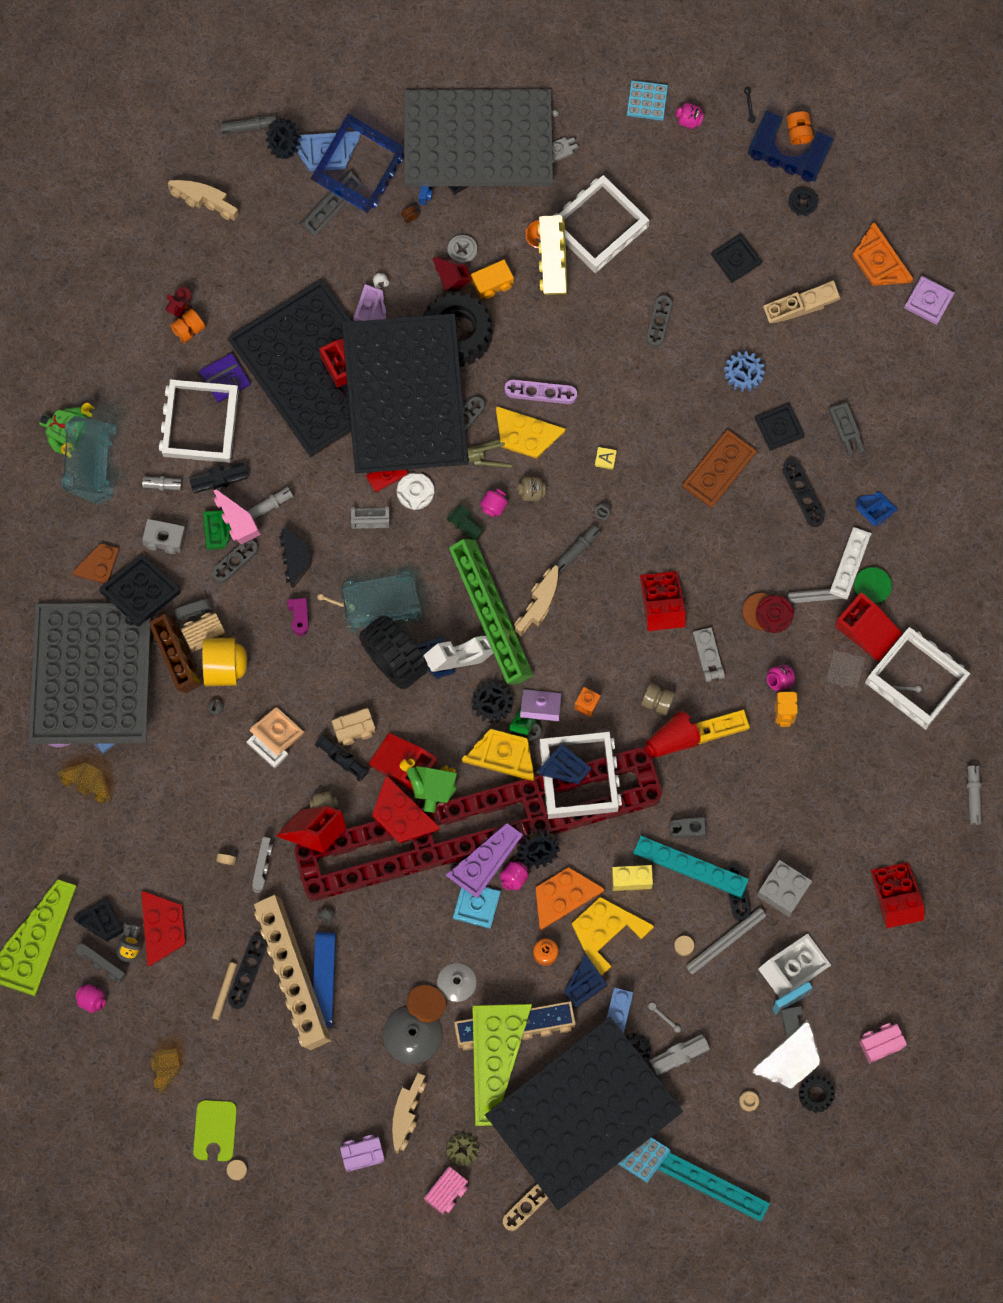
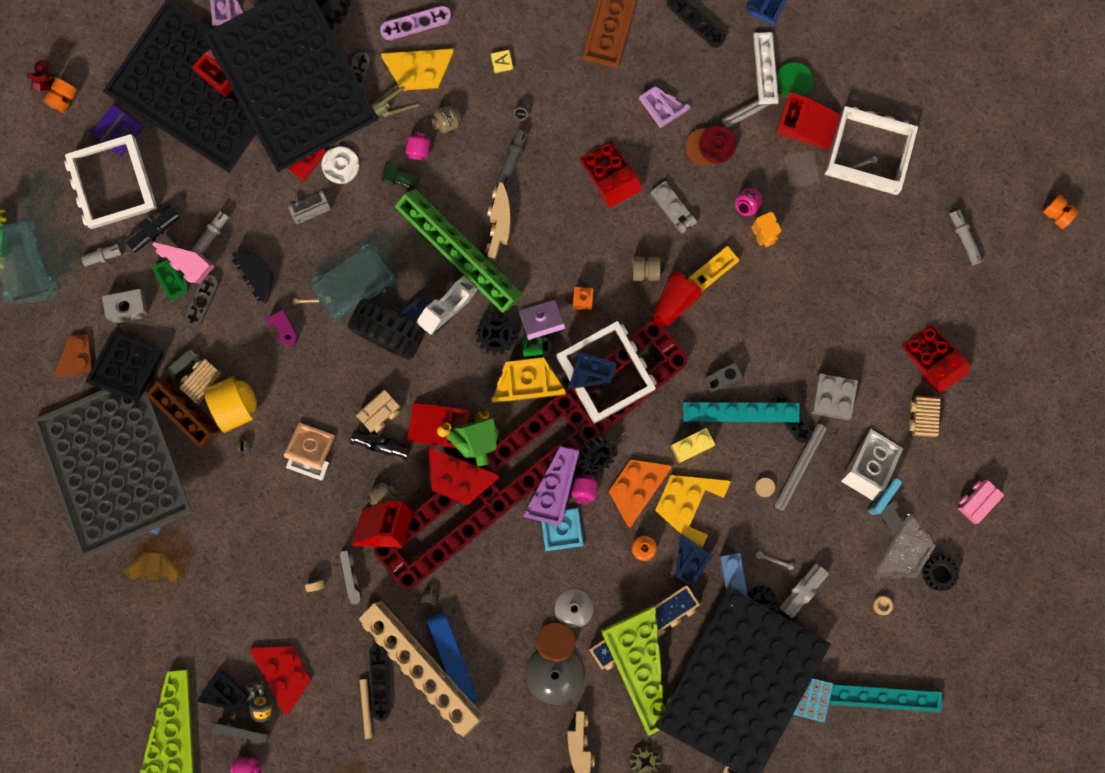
camera: 25 degrees left, 10 degrees up
(737, 559) = (662, 106): none -> lavender wing
(864, 943) = (925, 416): none -> tan brick

